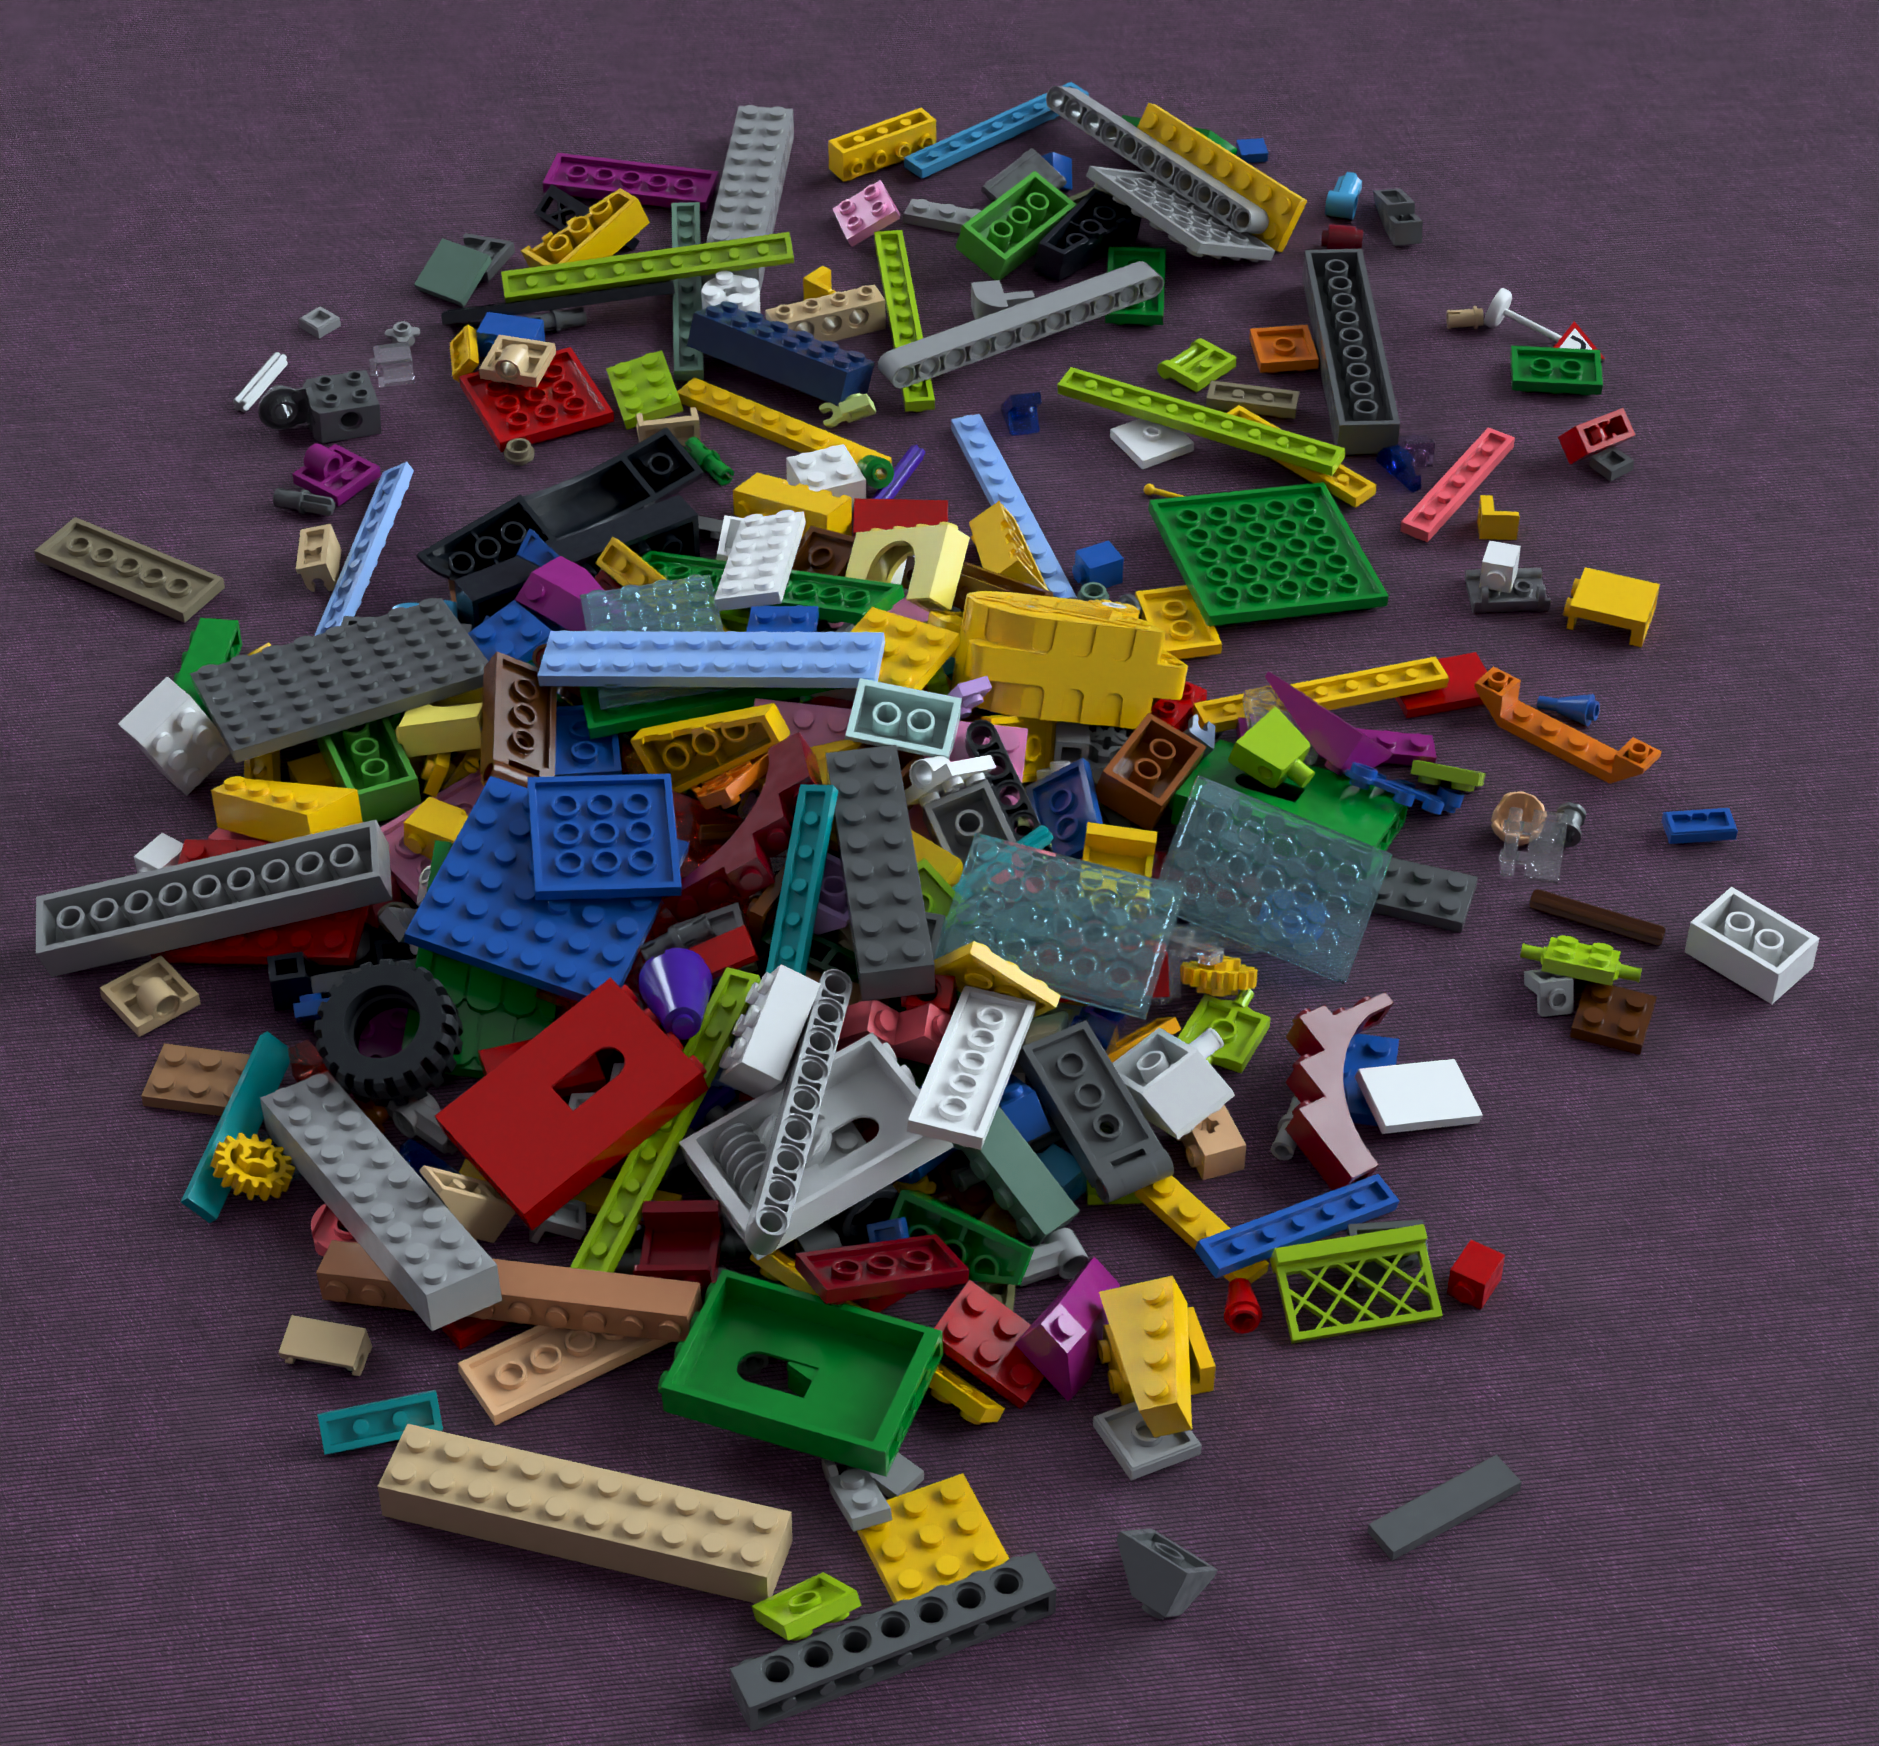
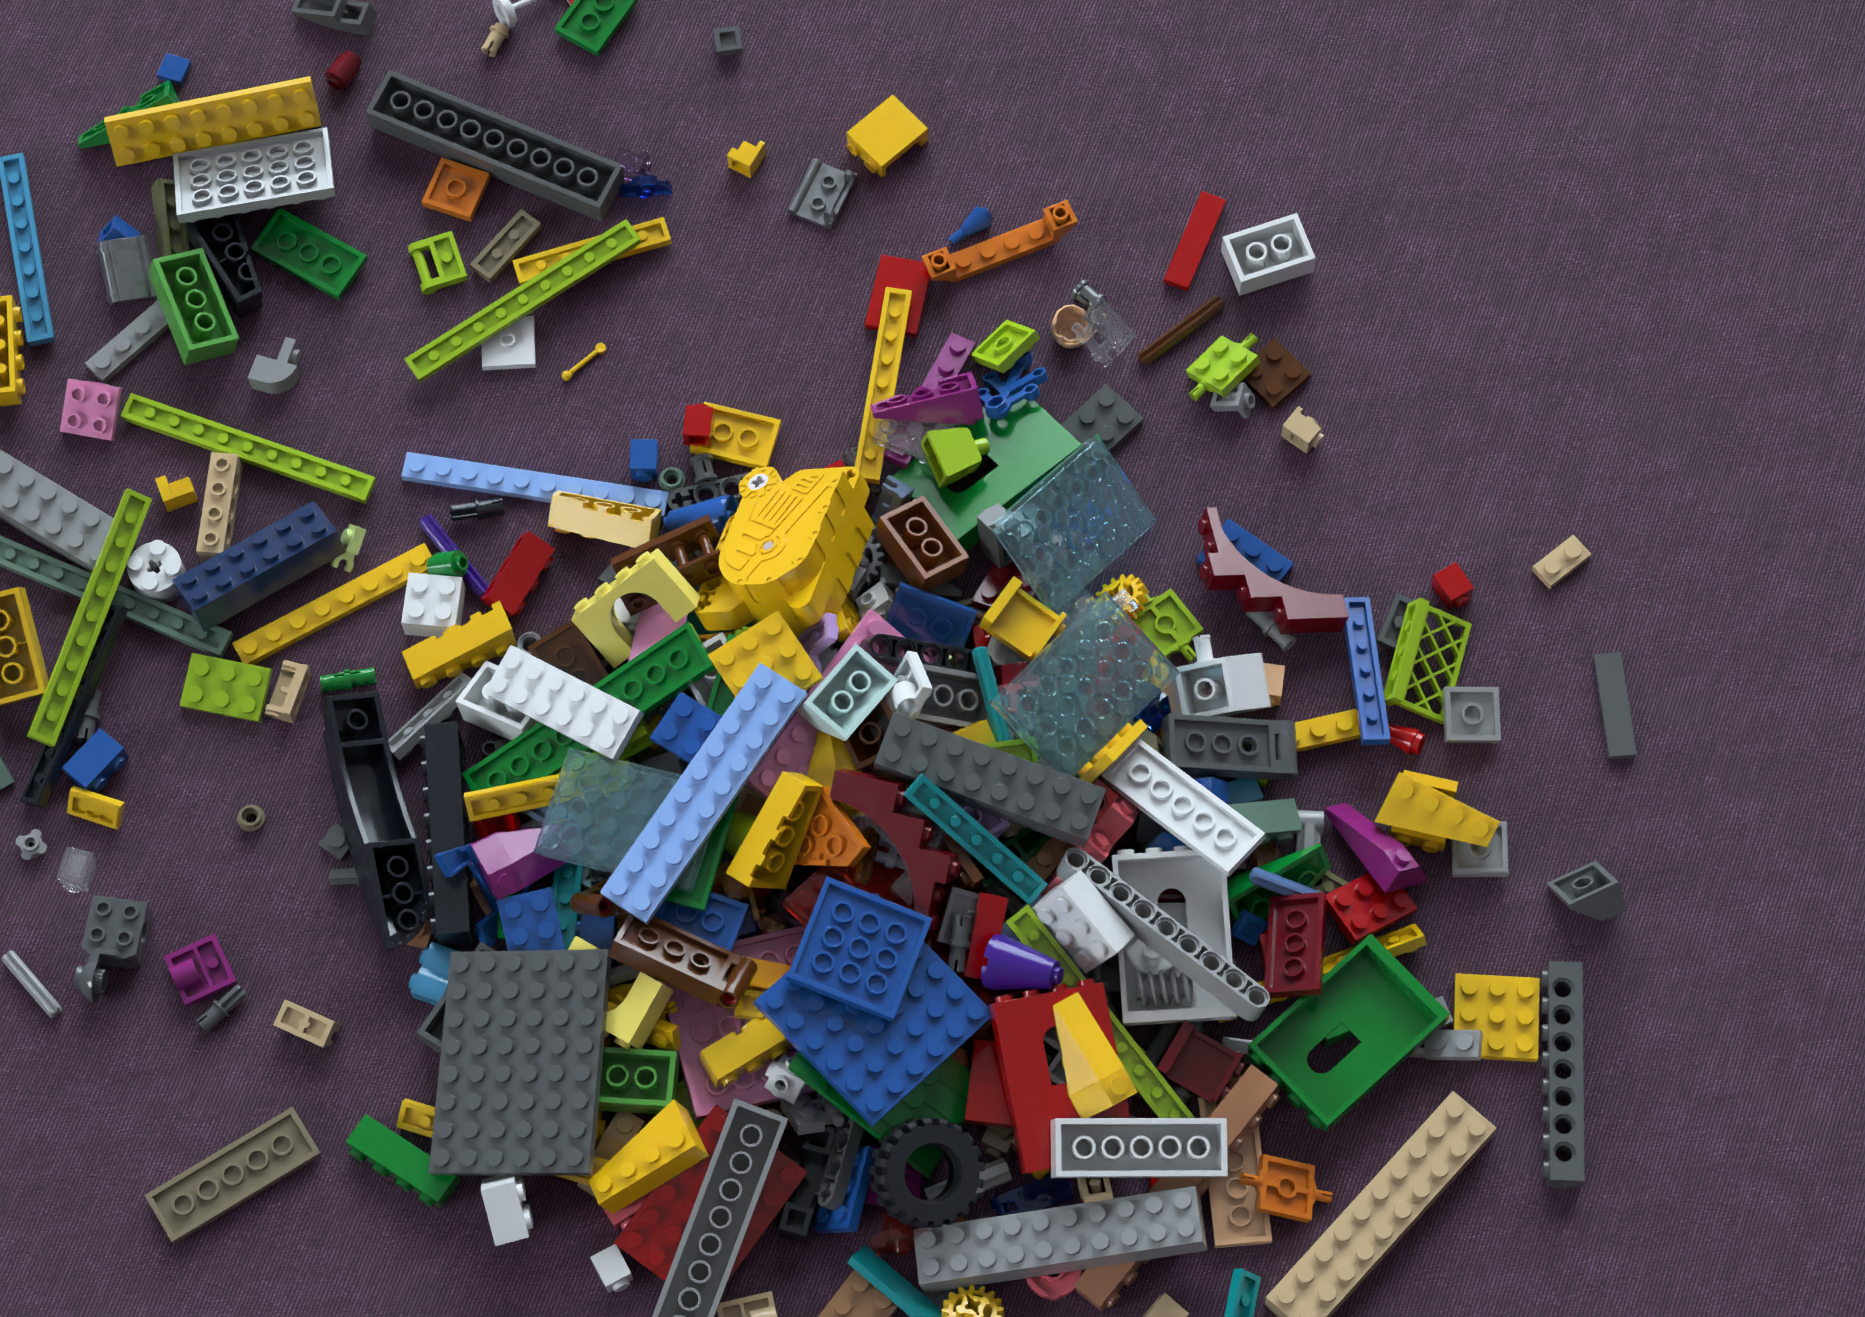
camera: 60 degrees left, 25 degrees up
(366, 546) = (332, 996): light blue plate -> none
(517, 361) = (145, 771): tan plate -> none
(517, 1195) = (1138, 1147): none -> white brick
(557, 407) = (188, 776): red plate -> none
(567, 1399) = (1285, 1188): none -> orange plate
(594, 1108) = (1090, 1064): none -> yellow wedge
(806, 1607) = (1520, 1114): lime plate -> none
(954, 1228) = (1277, 883): none -> medium blue axle
(955, 480) = (477, 509): none -> black axle
(1020, 324) = (327, 368): light grey beam -> none
(1021, 413) = (423, 420): clear blue slope -> none
(1158, 160) = (122, 163): light grey beam -> none
(1161, 579) = (698, 425): none -> red brick
(1267, 554) = (698, 335): green plate -> none
(1319, 1355) = (1471, 715): none -> light grey plate
(1344, 198) = (291, 41): dark azure piece -> none
(1418, 1096) = (1289, 535): white tile -> none
(1457, 484) = (690, 159): coral plate -> none
(1500, 566) = (812, 188): white brick -> none
(1562, 1060) = (1302, 431): none -> tan brick
(1596, 435) = (700, 35): red brick -> none
(1597, 1378) = (1561, 562): none -> tan plate
(1699, 825) = (1132, 215): blue plate -> none
(1704, 889) = (1194, 241): none -> red tile

